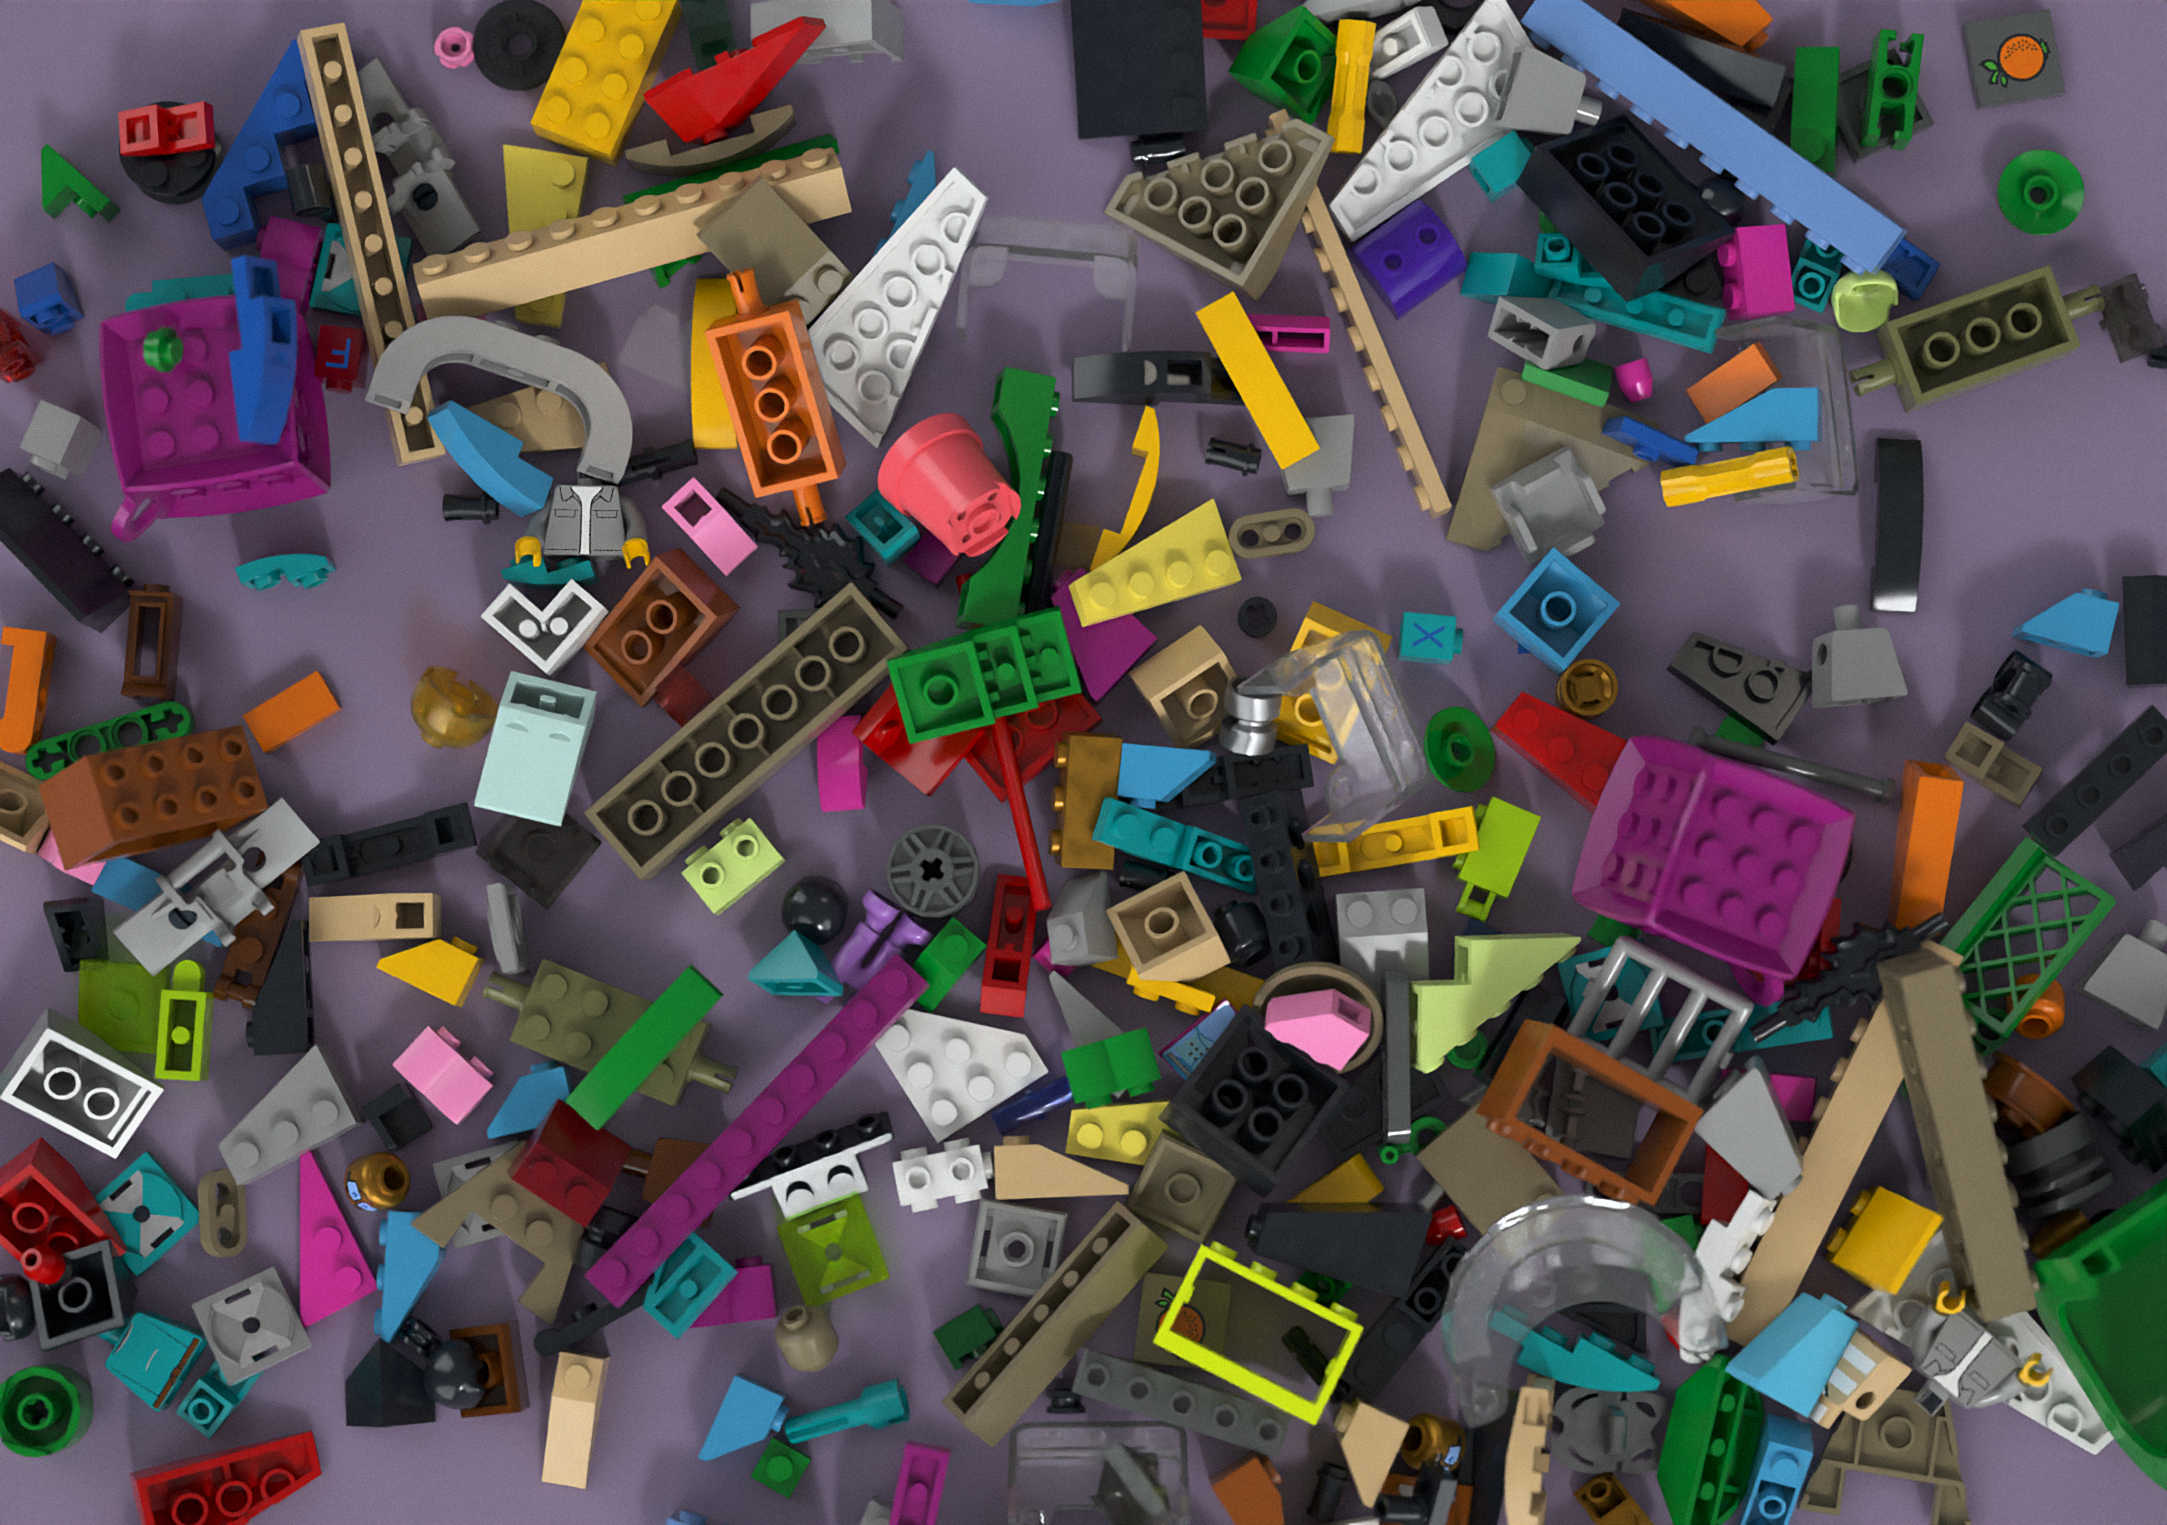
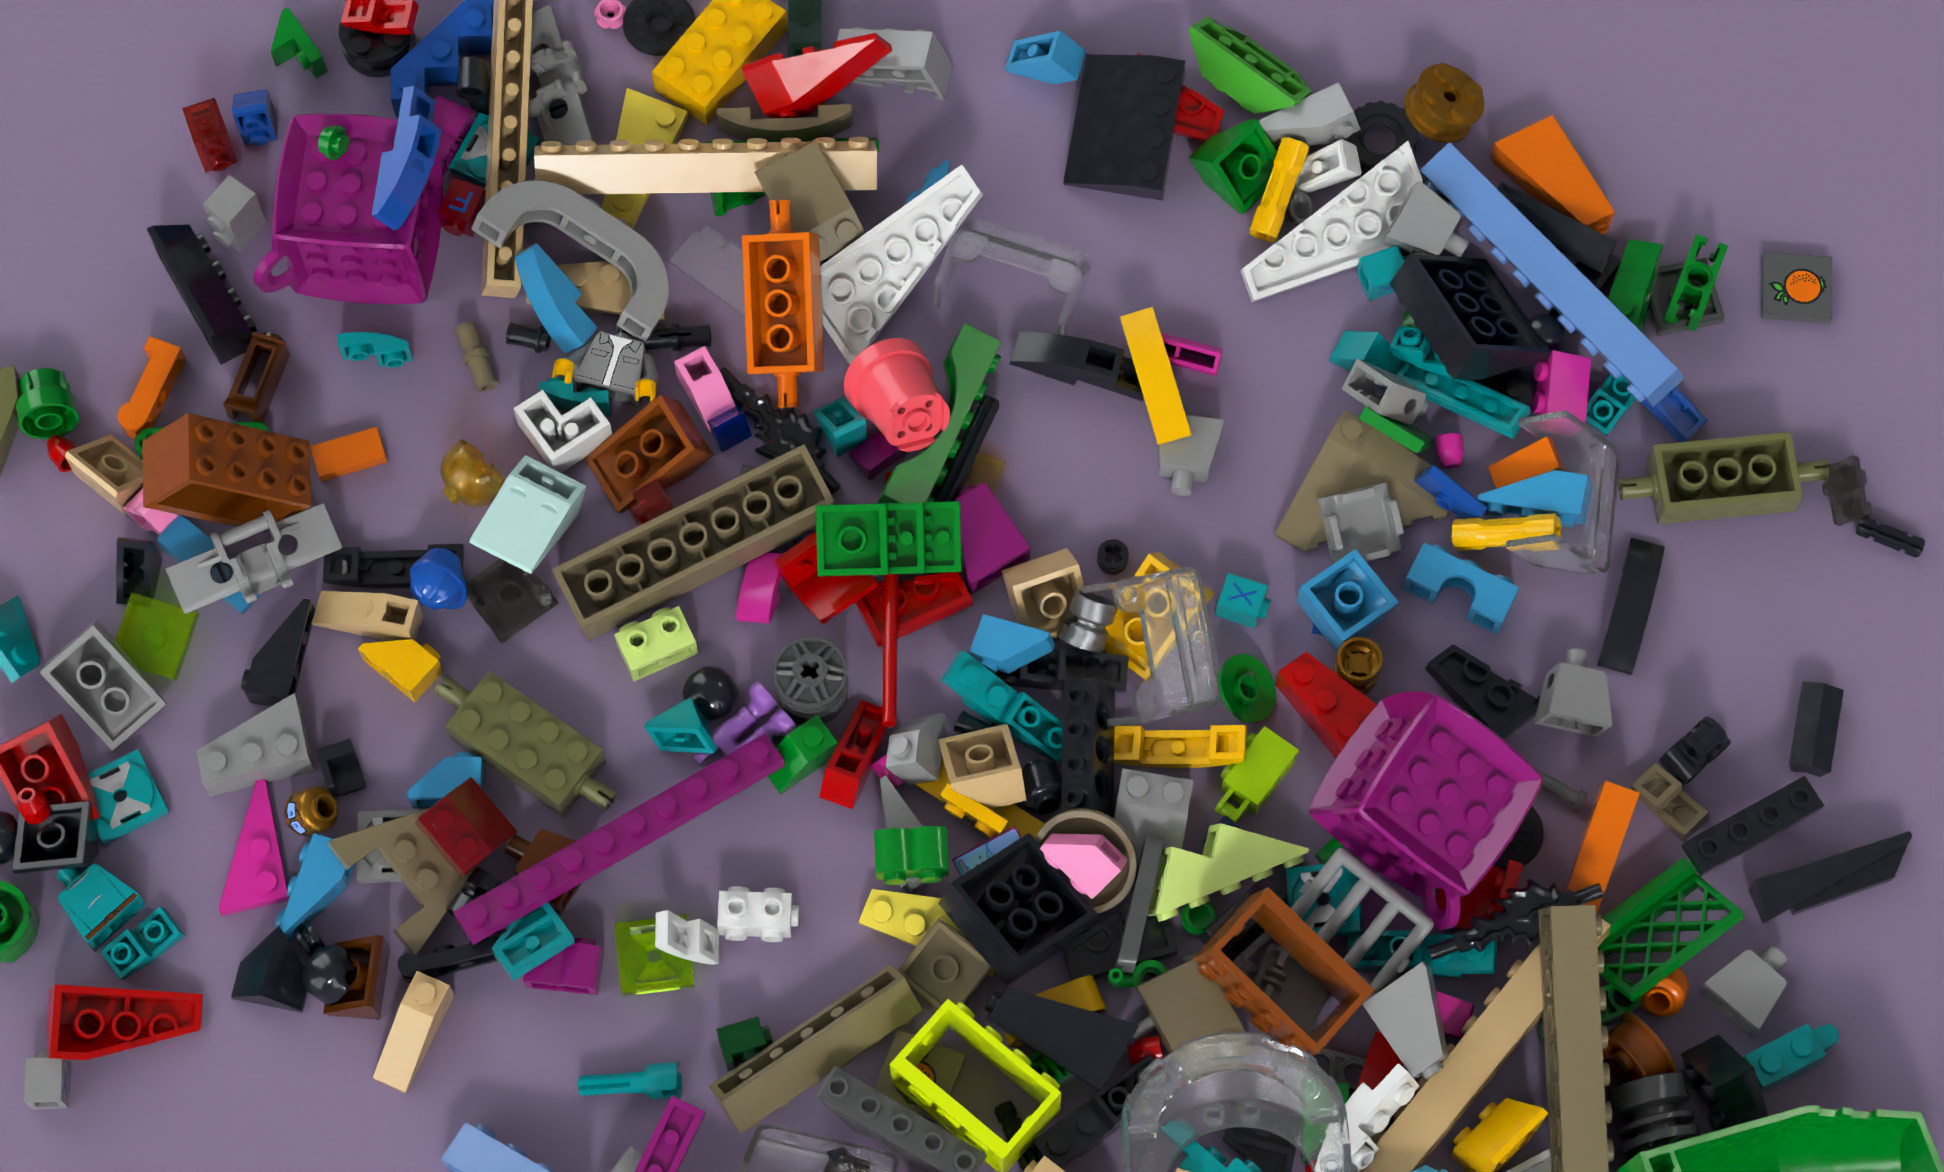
camera: 10 degrees right, 15 degrees down
(185, 1026) = (197, 660): lime brick -> none
(222, 1213) = (183, 810): dark tan plate -> none
(232, 1344) = (161, 909): light grey piece -> none
(258, 941) = (273, 610): reddish brown plate -> none
(413, 549) = (476, 356): none -> dark tan pin
(445, 1073) = (387, 745): bright pink brick -> none
(448, 858) = (438, 580): none -> blue piece
(507, 929) = (468, 643): light grey piece -> none
(644, 1047) = (548, 748): green slope -> none
(710, 413) = (730, 306): yellow slope -> none
(744, 1417) = (547, 1064): dark azure slope -> none
(750, 567) = (730, 428): none -> clear blue slope
(781, 1467) = (566, 1113): green plate -> none
(806, 1338) = (614, 1012): dark tan head -> none
(818, 1169) = (659, 888): bracket -> none
(868, 1228) = (687, 939): none -> white slope
(956, 1067) = (789, 837): white plate -> none
(1010, 1223) = (799, 967): light grey piece -> none
(1033, 1105) = (843, 879): clear blue pin -> none
(1039, 1172) = (836, 932): tan slope -> none
(1065, 1402) = (808, 1114): black bush -> none
(1087, 775) = (950, 632): pearl gold brick -> none
(1146, 446) = (1015, 476): yellow slope -> none
(1156, 150) = (1120, 203): black pin -> none
(1165, 567) = (1050, 498): light yellow wing -> none
(1229, 209) = (1166, 256): dark tan slope -> none
(1234, 456) = (1124, 434): black pin -> none
(1270, 533) = (1139, 495): dark tan plate -> none
(1366, 338) = (1246, 366): tan plate -> none
(1408, 258) = (1295, 323): dark purple brick -> none
(1725, 560) = (1437, 570): none -> dark azure arch
(1864, 300) = (1640, 429): yellowish green hair -> none
(2054, 178) = (1806, 375): green dish -> none
(2075, 624) = (1754, 708): dark azure slope -> none

